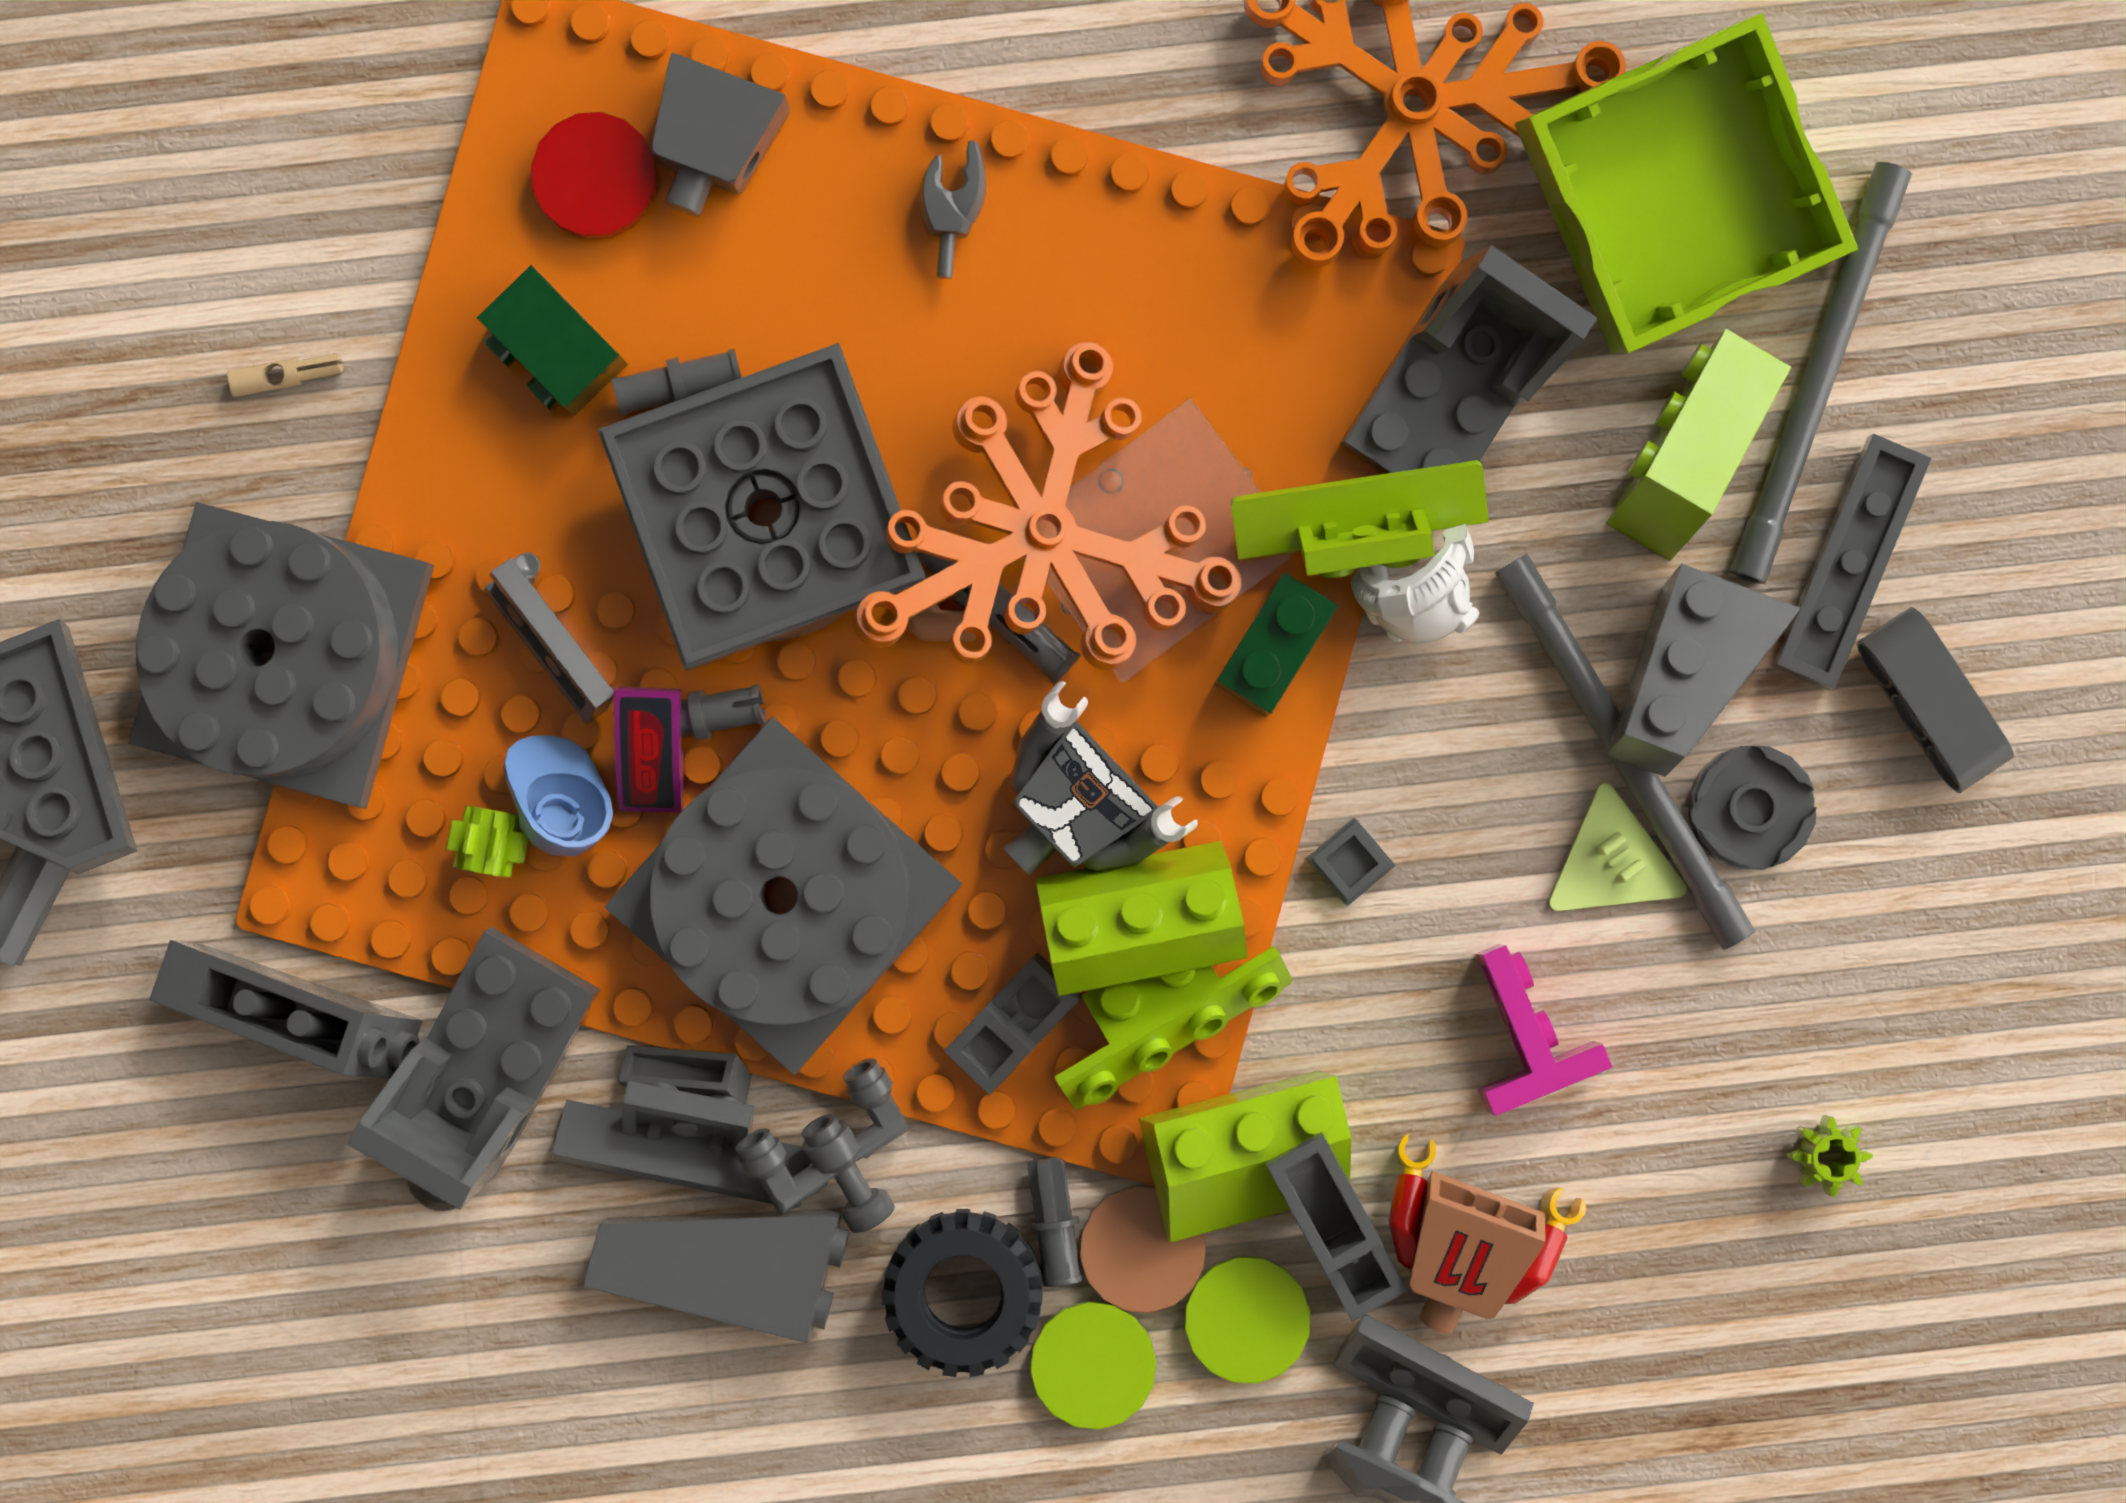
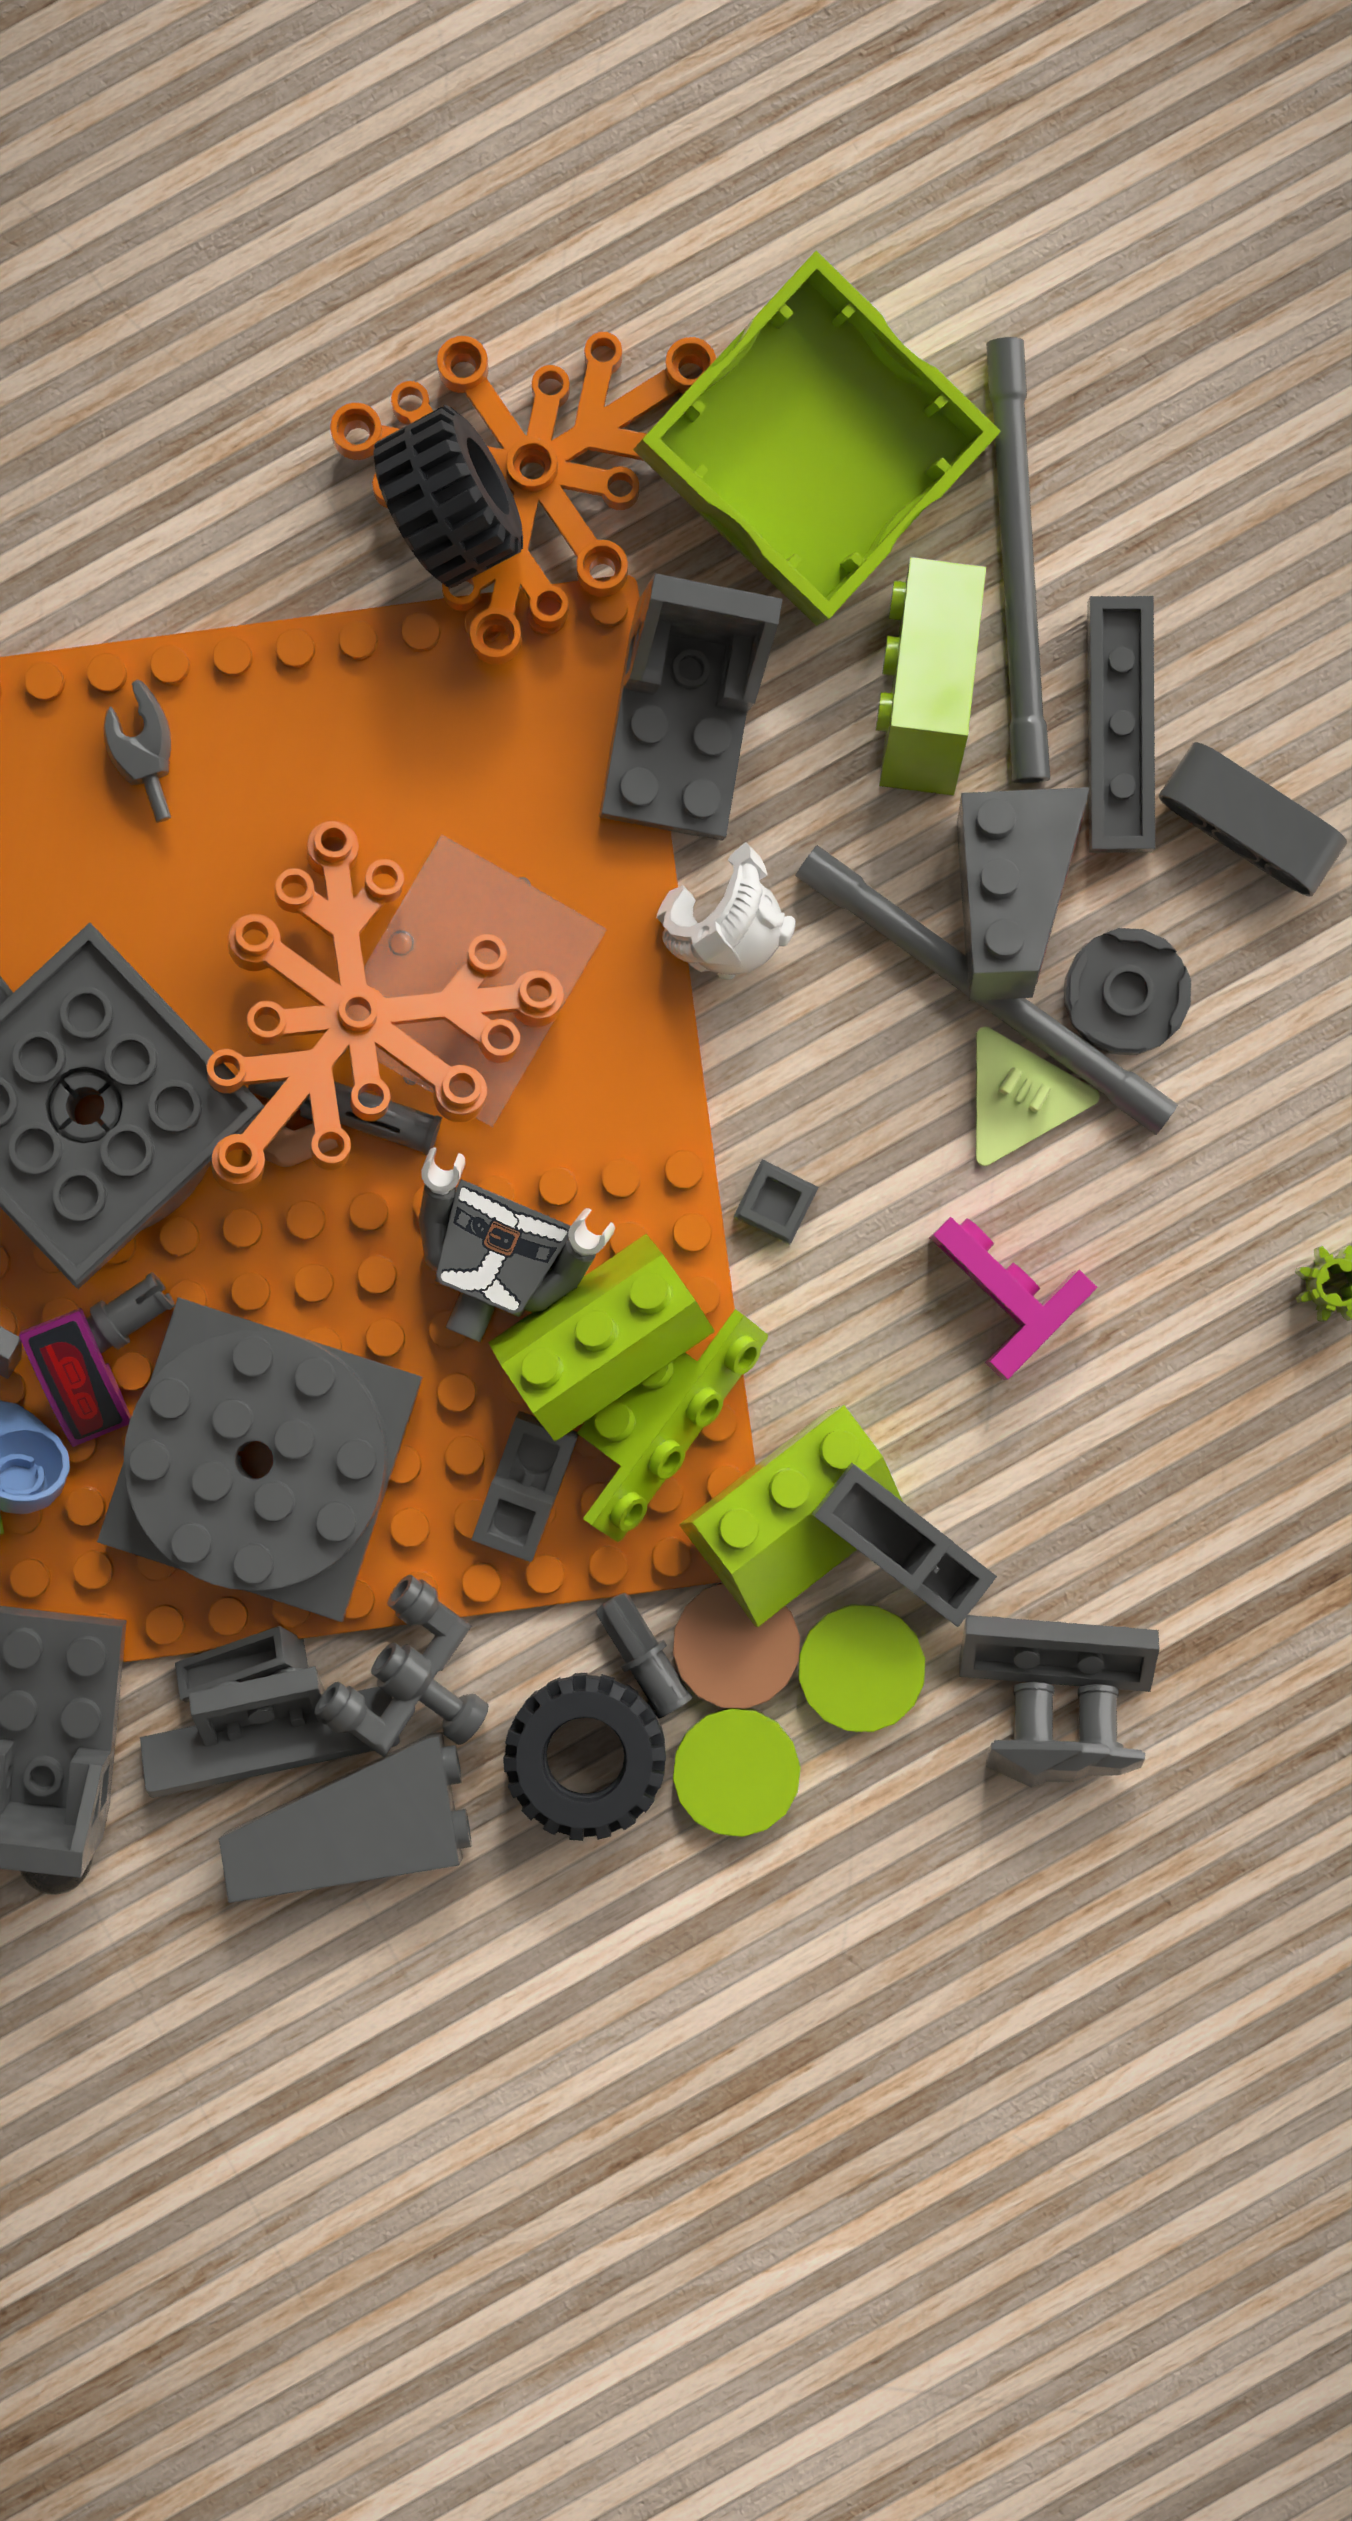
camera: 25 degrees left, 0 degrees up
(1276, 644) = (618, 1029): dark green brick -> none
(1330, 94) = (448, 496): none -> black tyre
(1361, 519) = (647, 878): lime bracket -> none
(1470, 1244) = (1037, 1508): nougat torso -> none

